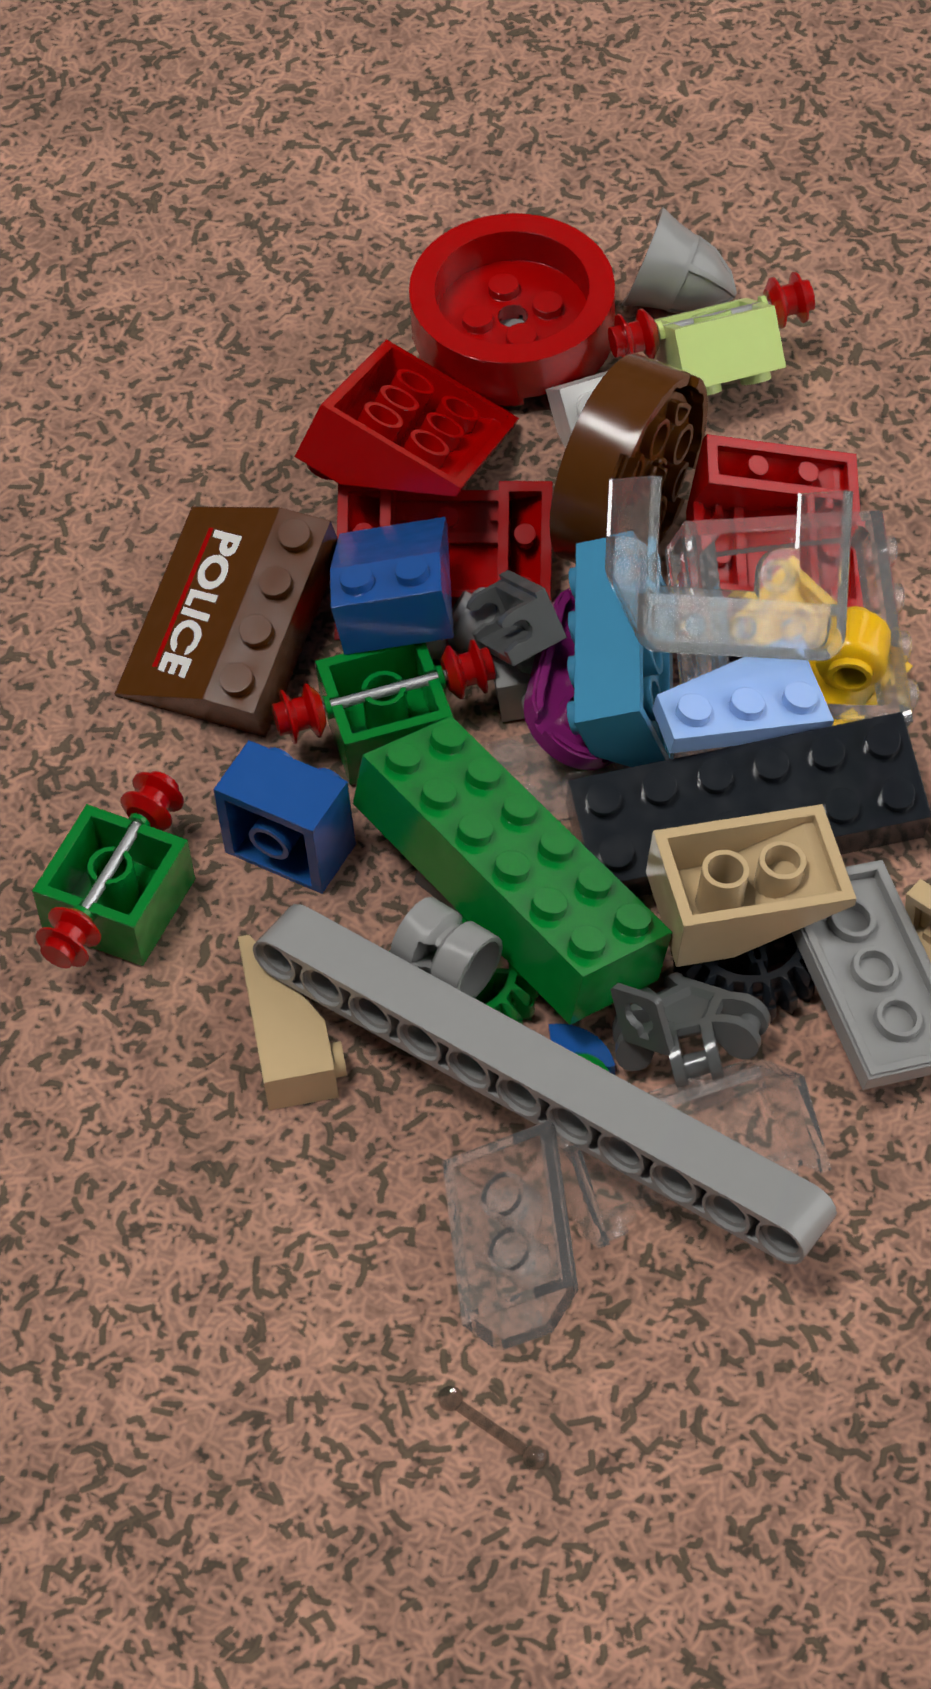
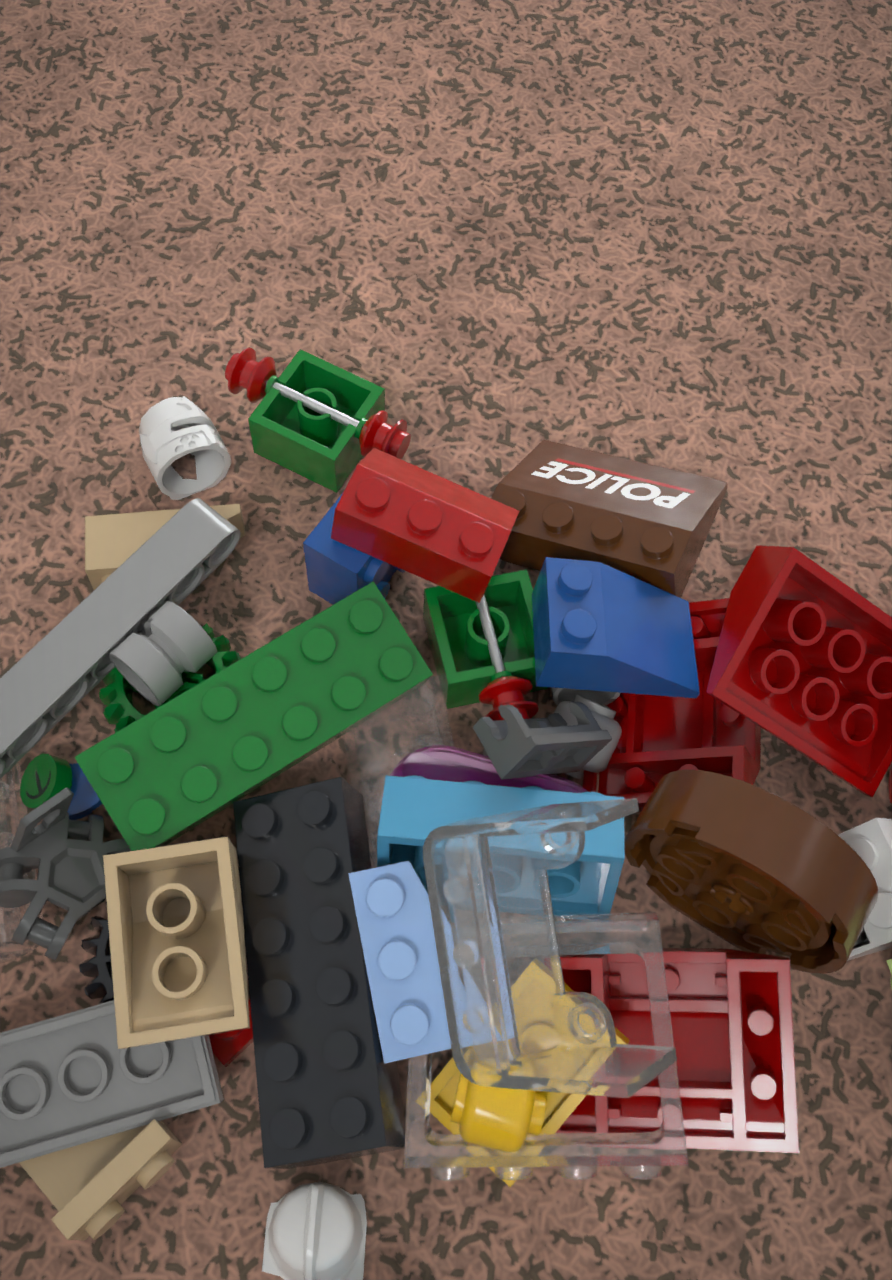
camera: 85 degrees right, 10 degrees up
(153, 1015) = (173, 431): none -> white helmet
(290, 714) = (423, 524): none -> red slope

